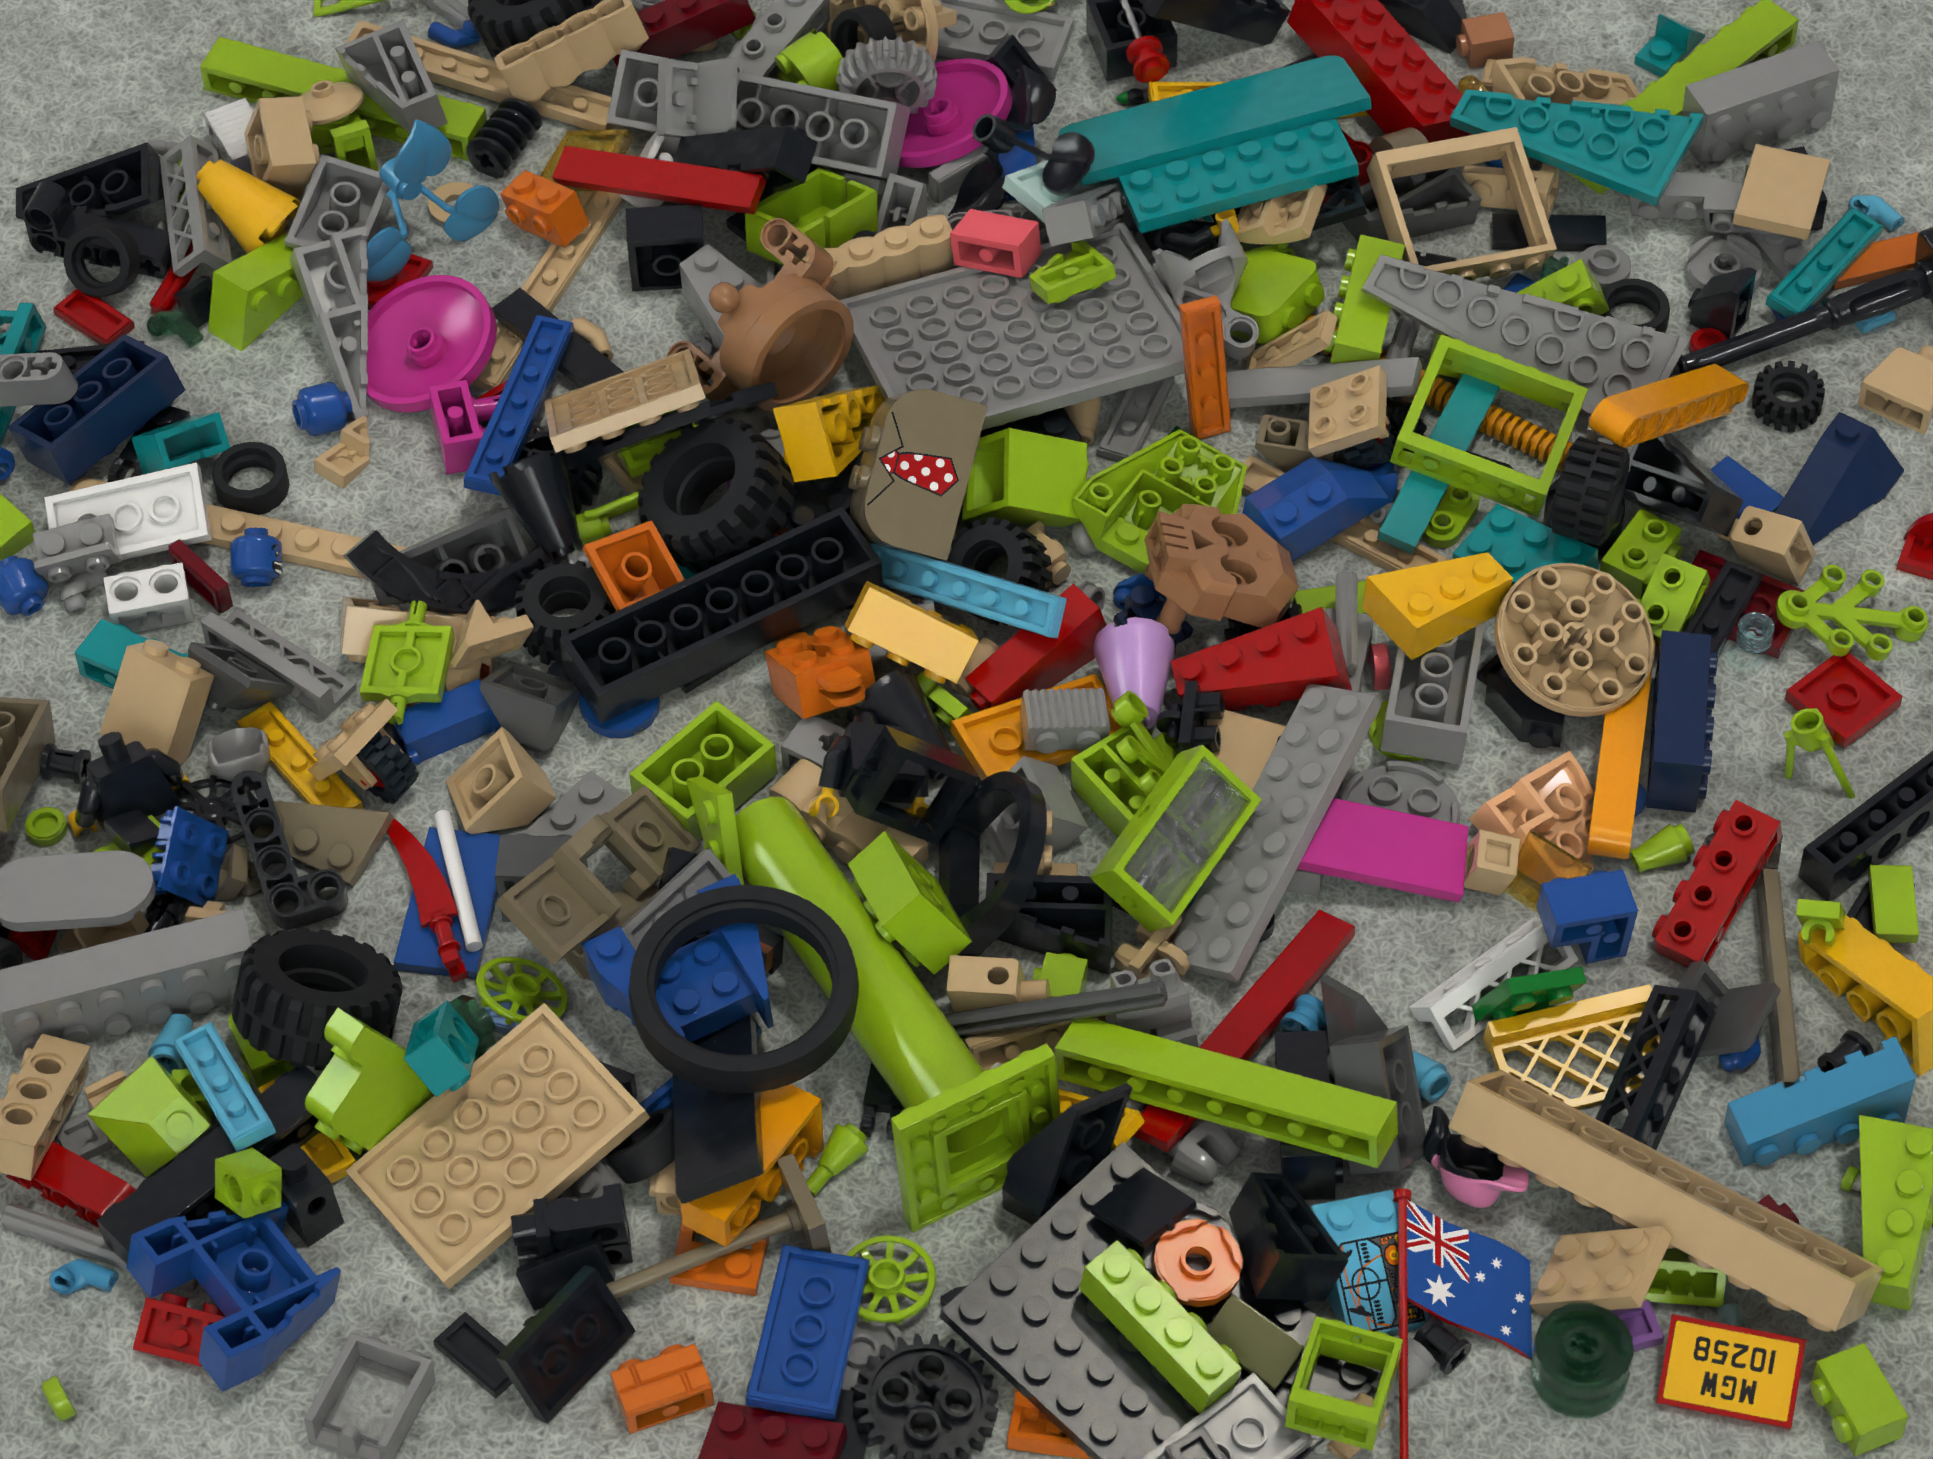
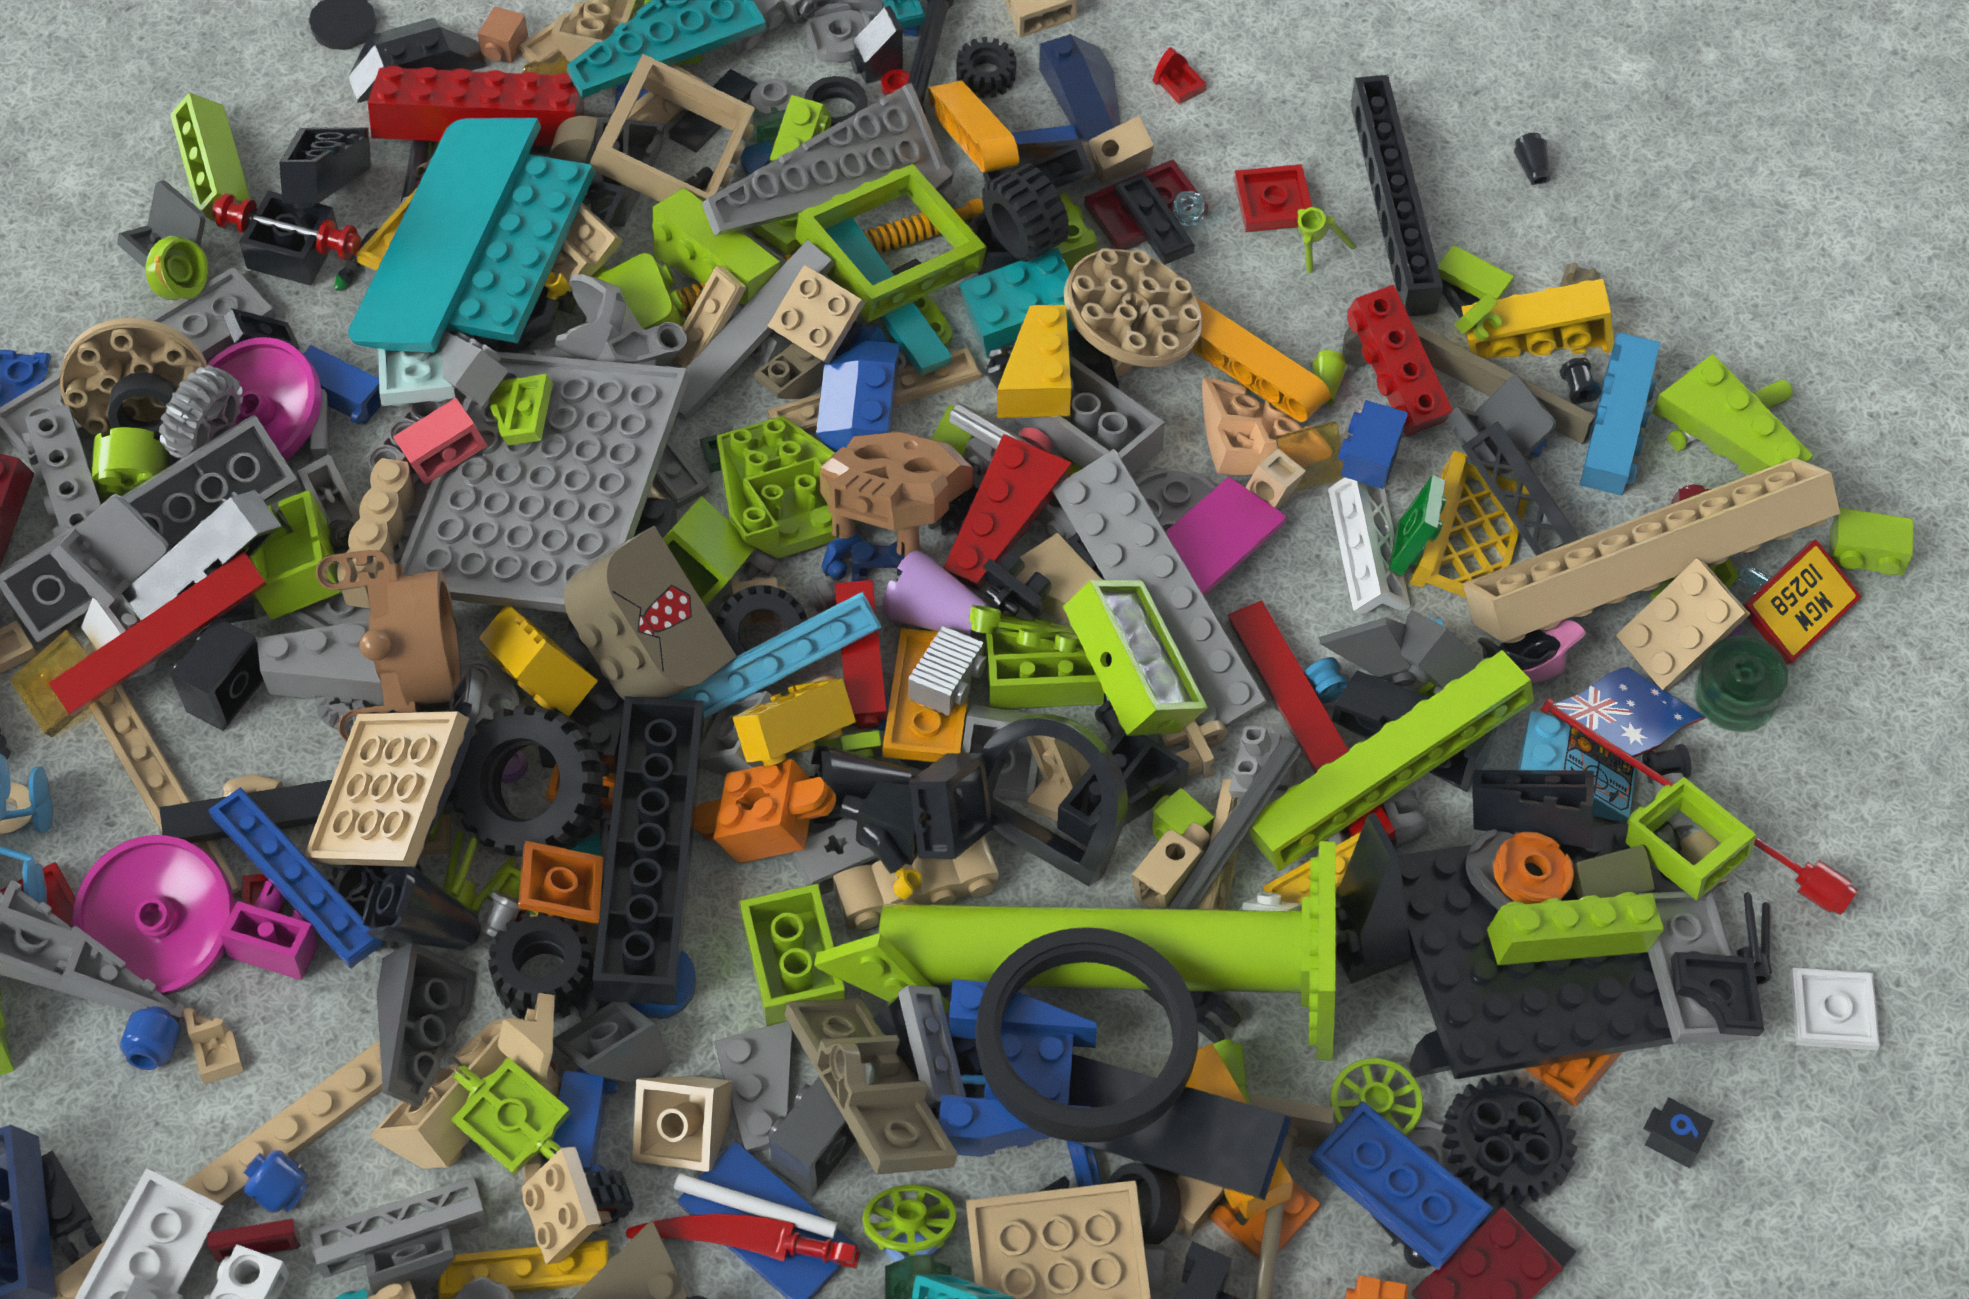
camera: 60 degrees left, 5 degrees up
(181, 442) = (97, 1173): teal brick -> none
(244, 456) = (163, 1112): black tyre -> none
(440, 589) = (448, 1041): black tile -> none
(544, 208) = (89, 740): orange brick -> none
(908, 904) = (1053, 877): lime brick -> none
(1031, 104) = (355, 426): black plant -> none
(1143, 1207) = (1465, 875): black piece -> none
(1205, 367) = (694, 376): orange tile -> none
(1522, 715) = (1151, 384): black slope -> none
(1672, 594) = (1126, 228): lime brick -> none
(1681, 722) = (1241, 290): dark blue brick -> none
(1802, 609) = (1189, 172): lime plant -> none

